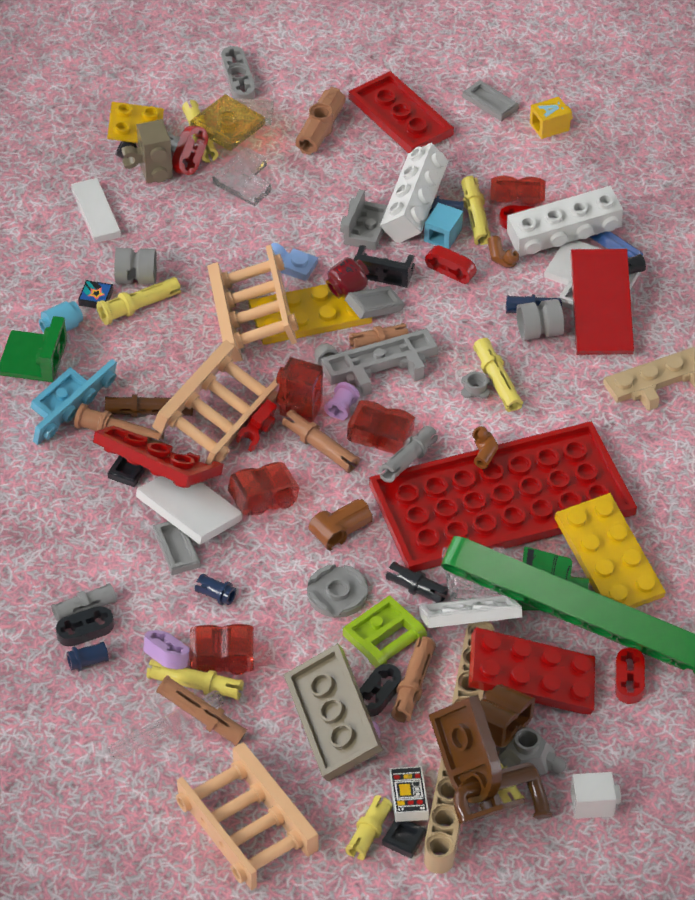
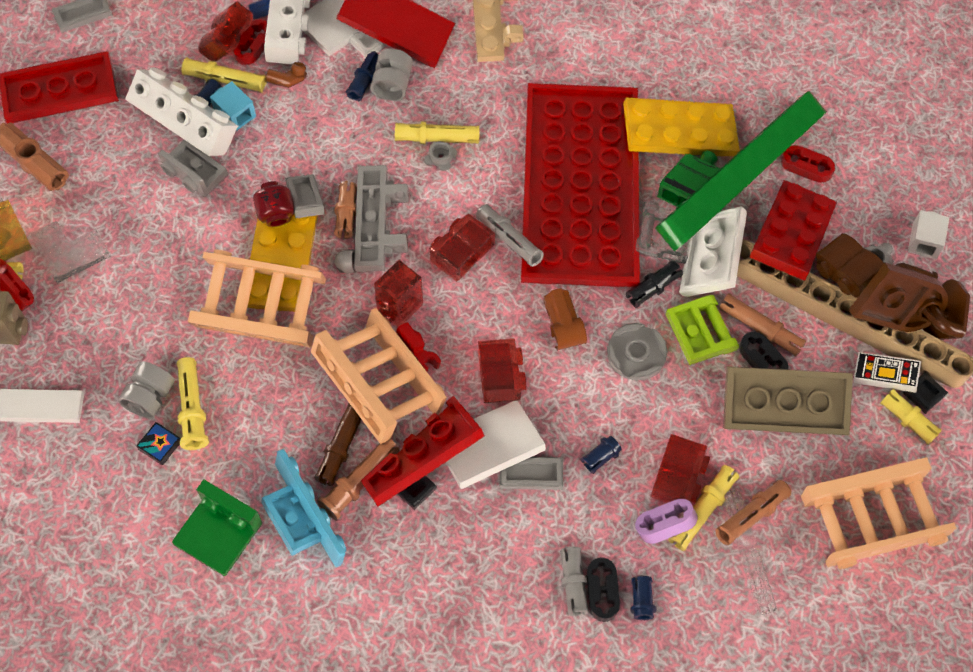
camera: 70 degrees left, 15 degrees up
(69, 310) = (181, 487): medium azure brick -> none
(296, 263) = (207, 242): light blue plate -> none
(311, 434) = (444, 307): nougat pin -> none
(344, 397) = (412, 261): lavender bush -> none
(387, 270) = (263, 169): black hinge -> none
(450, 264) = (283, 119): red beam -> none
(487, 446) = (530, 169): dark orange arm -> none

